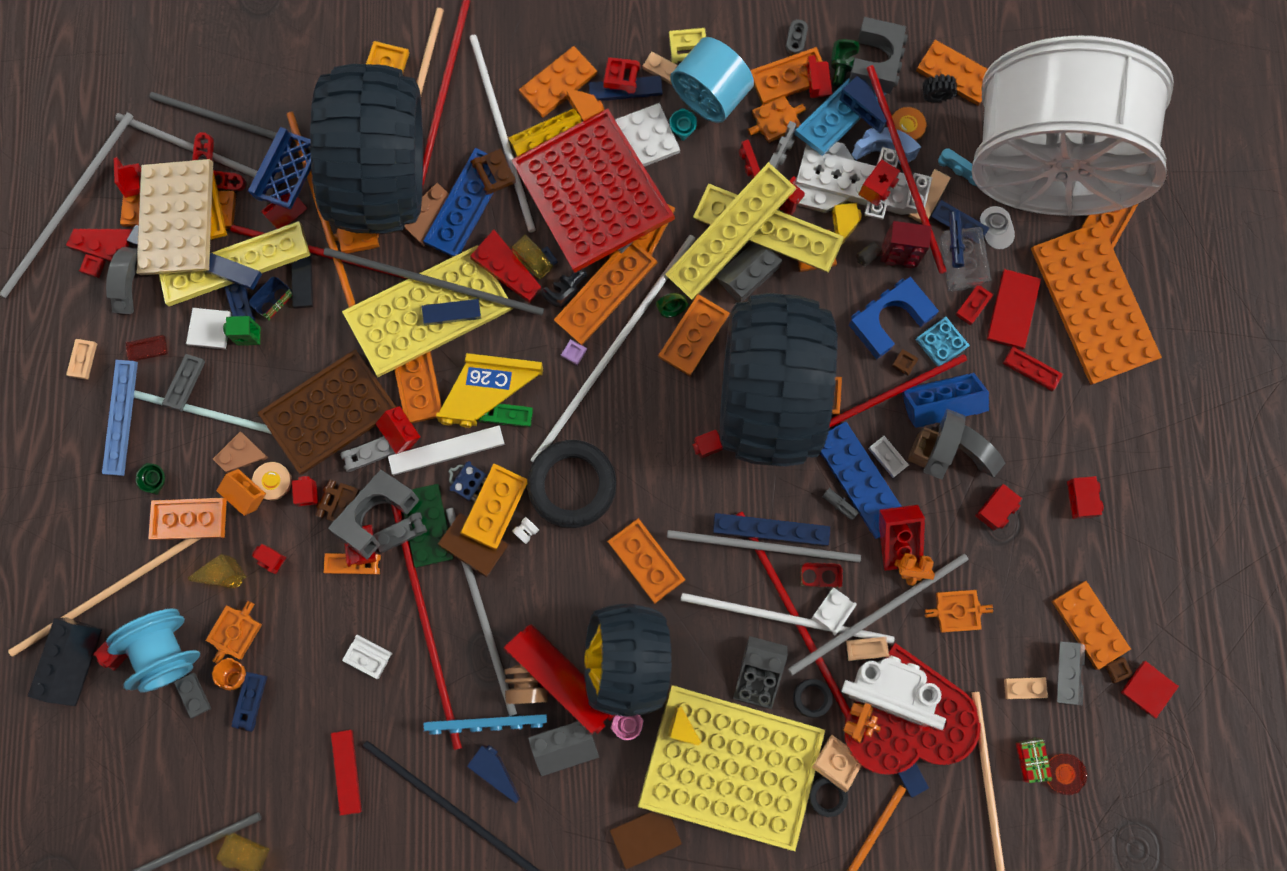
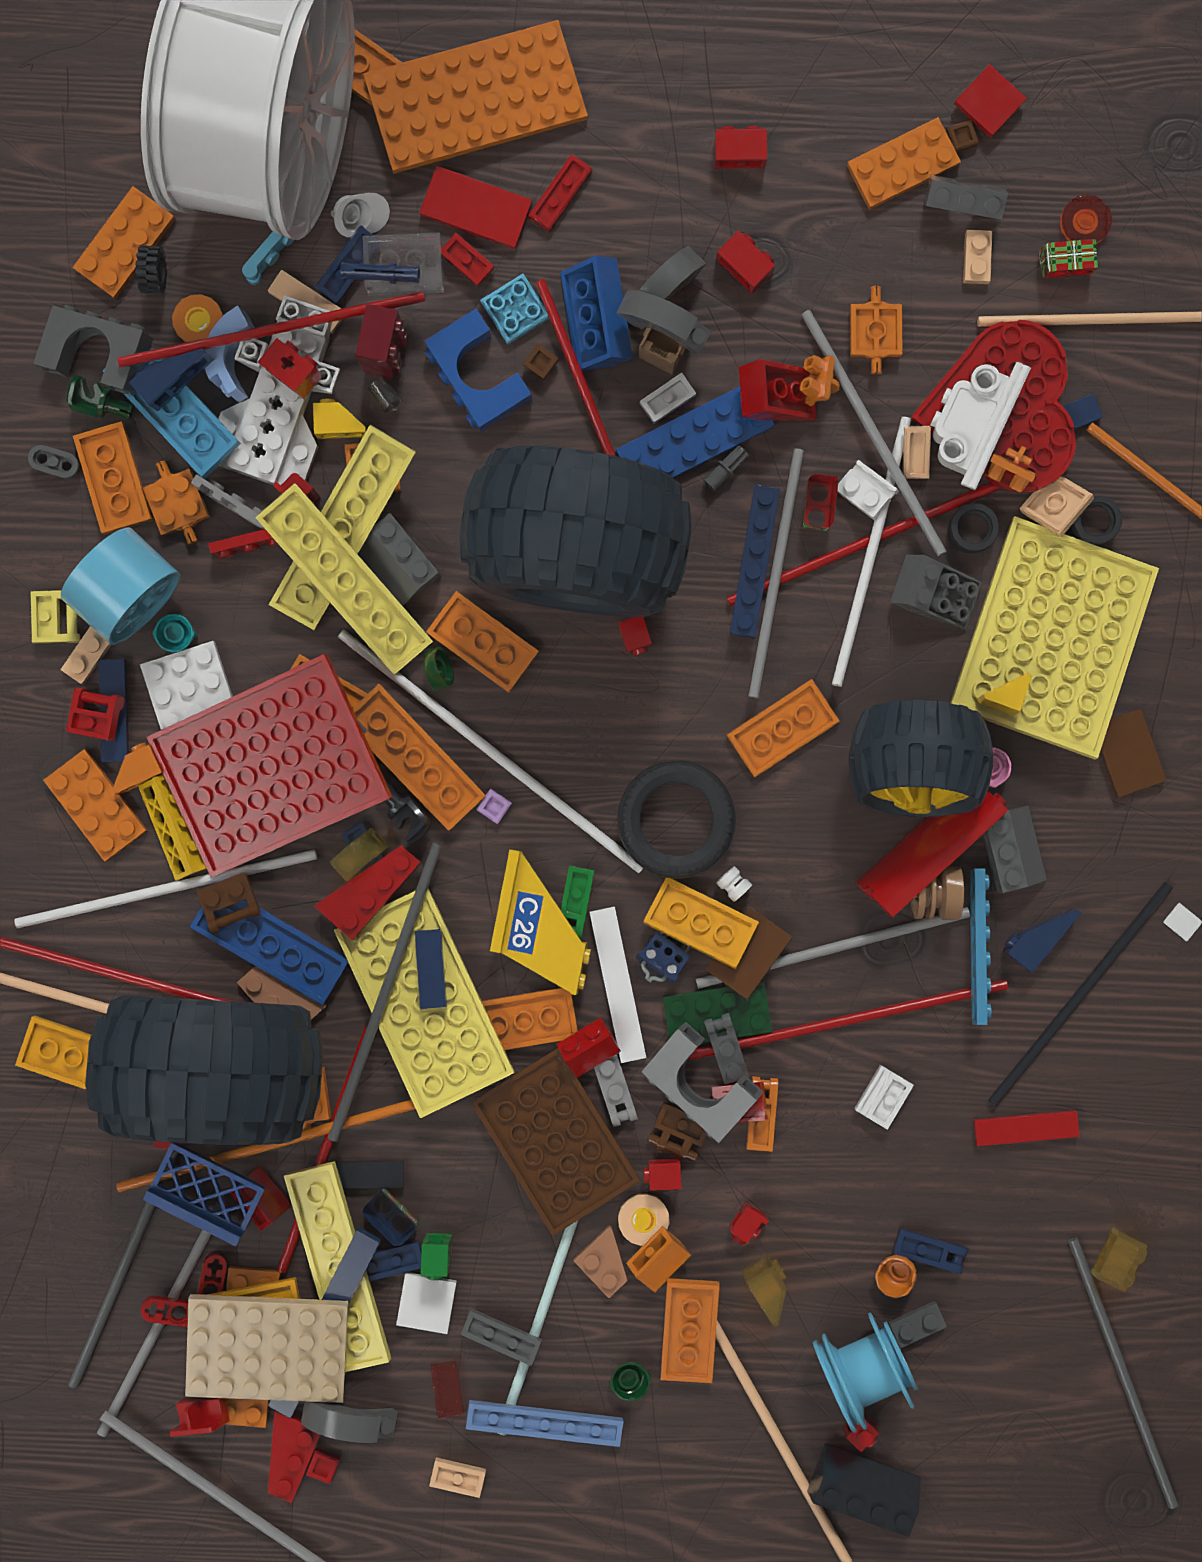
camera: 90 degrees left, 10 degrees up
(233, 632) = (841, 1270): orange plate -> none
(818, 78) = (122, 437): red panel -> none

